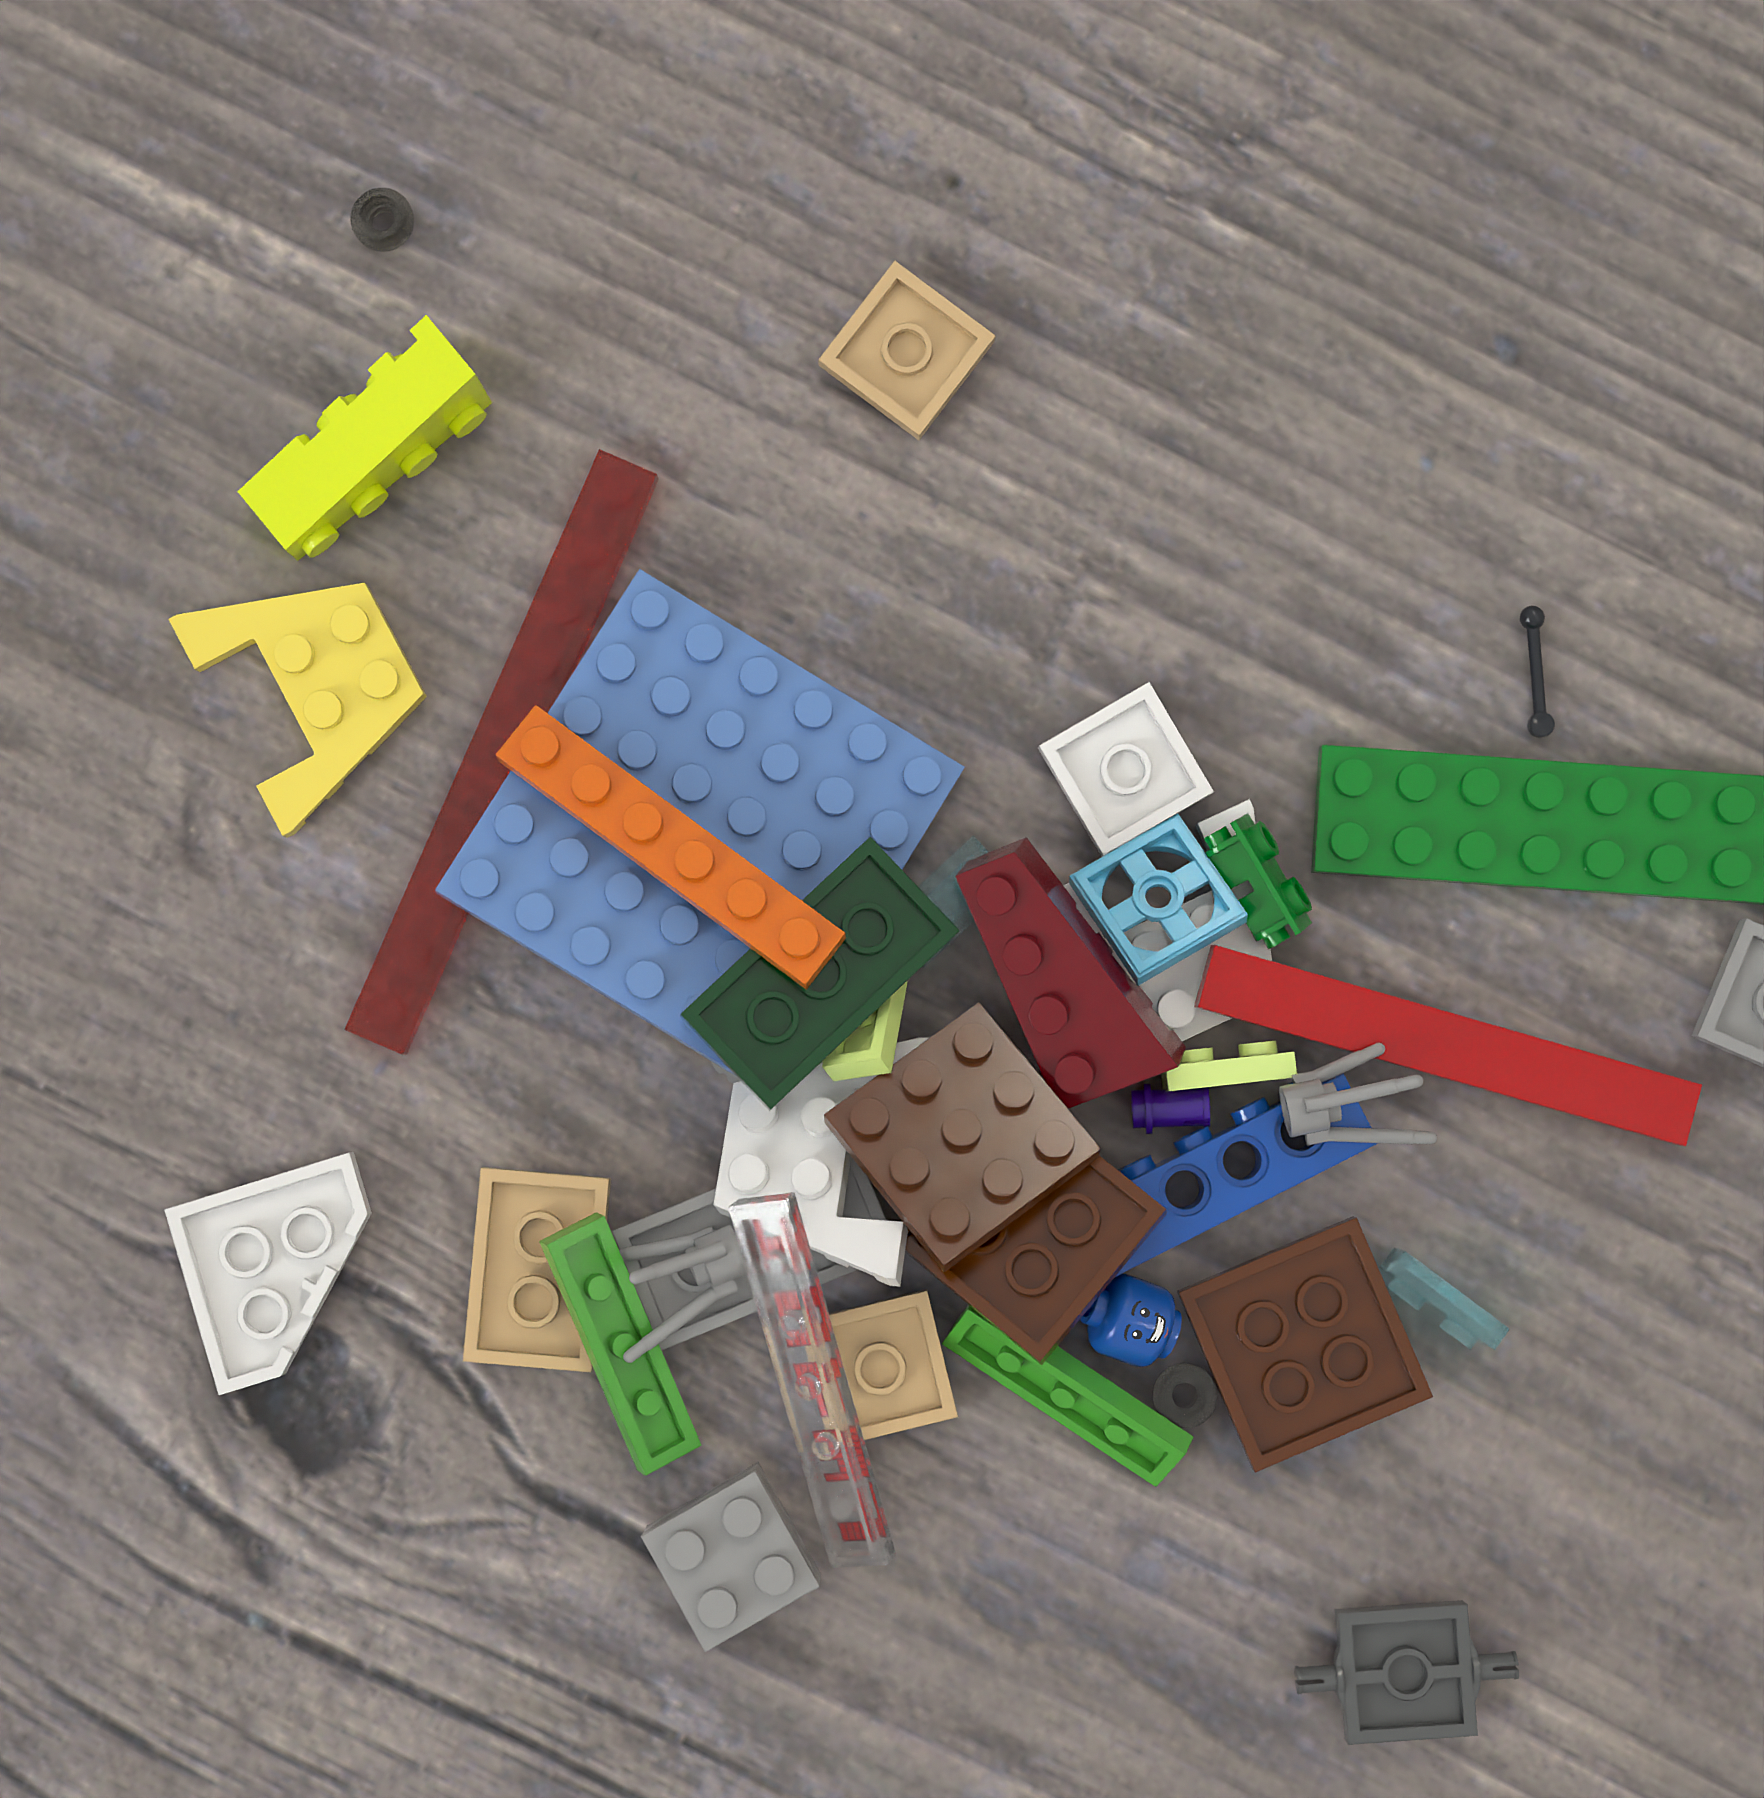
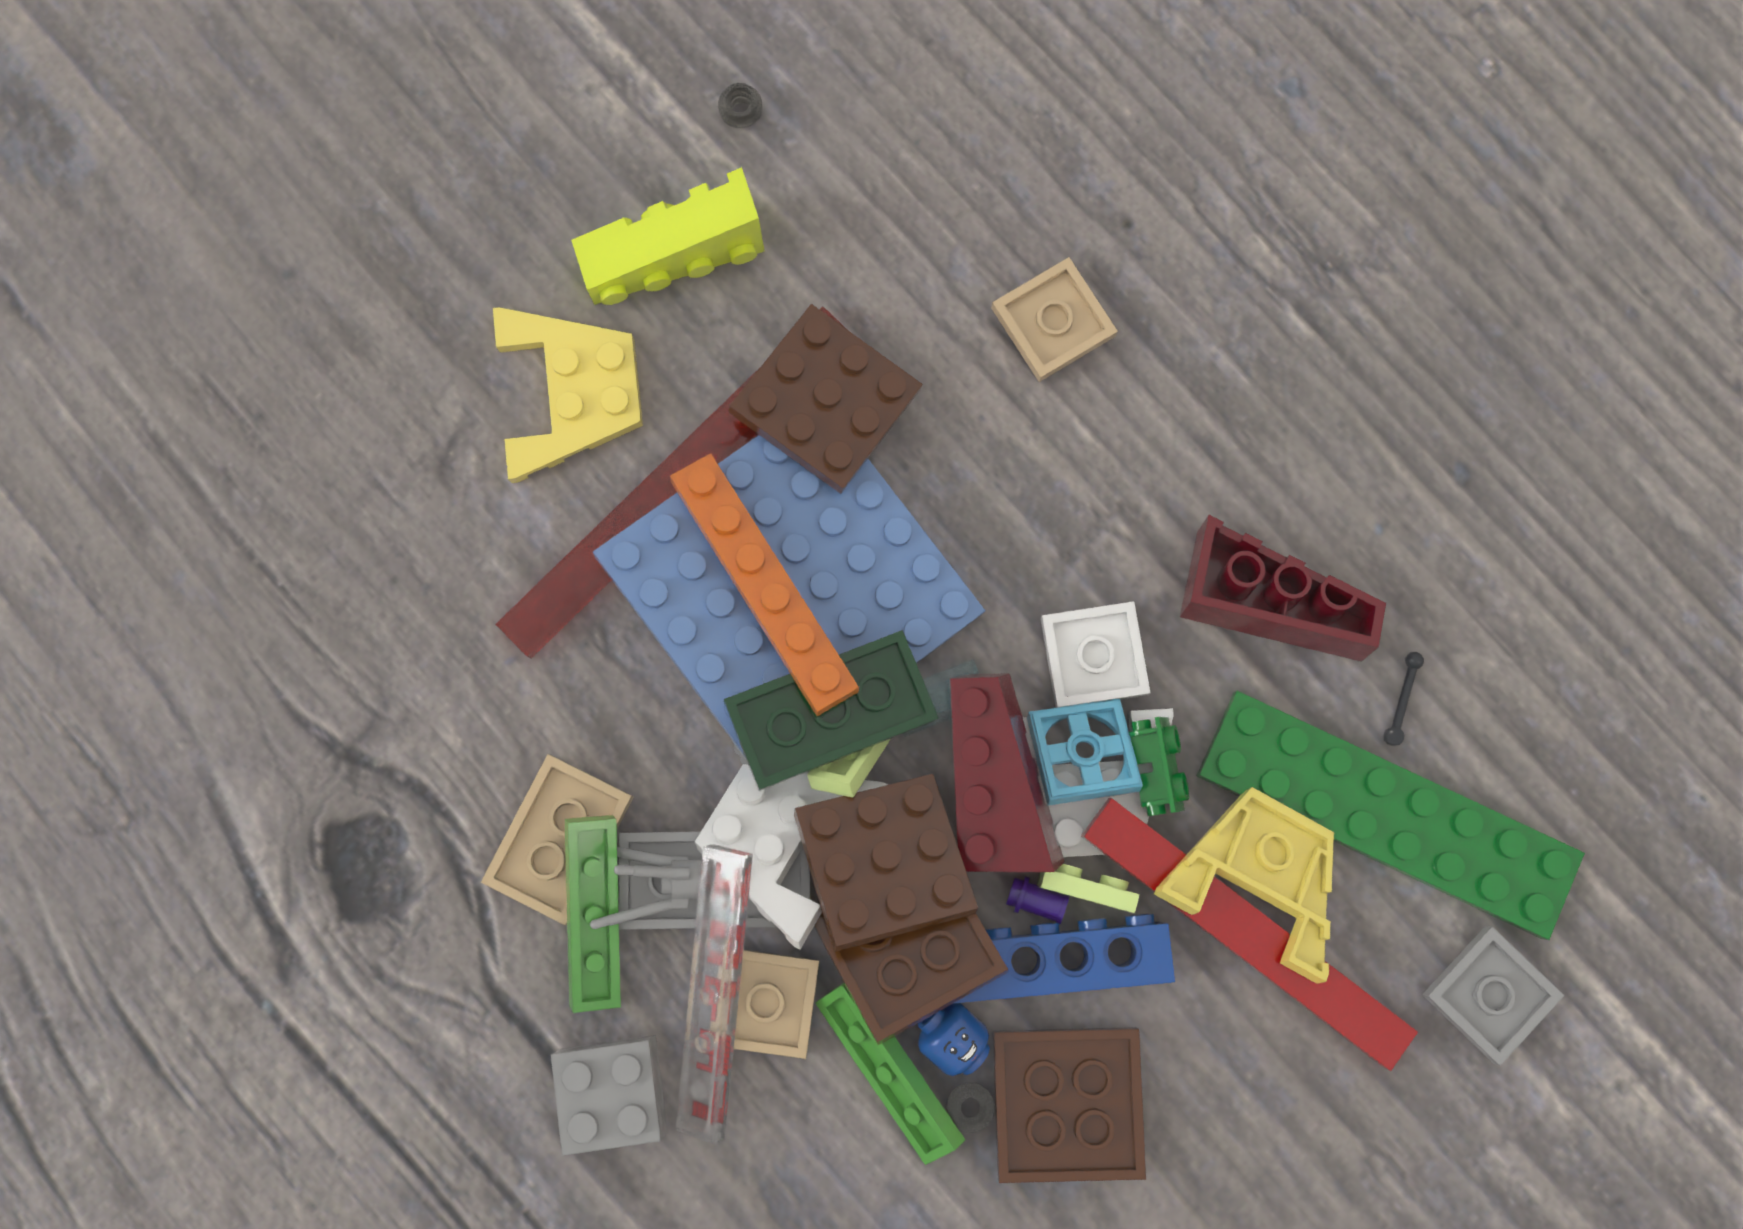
camera: 20 degrees right, 5 degrees down
(266, 1262) = (377, 761): white plate -> none
(652, 573) = (825, 398): none -> reddish brown plate
(1312, 1106) = (1137, 938): light grey plant -> none
(1325, 607) = (1276, 597): none -> dark red wedge
(1441, 938) = (1274, 858): none -> light yellow wing
(1463, 1317) = (1188, 1130): clear light blue plate -> none

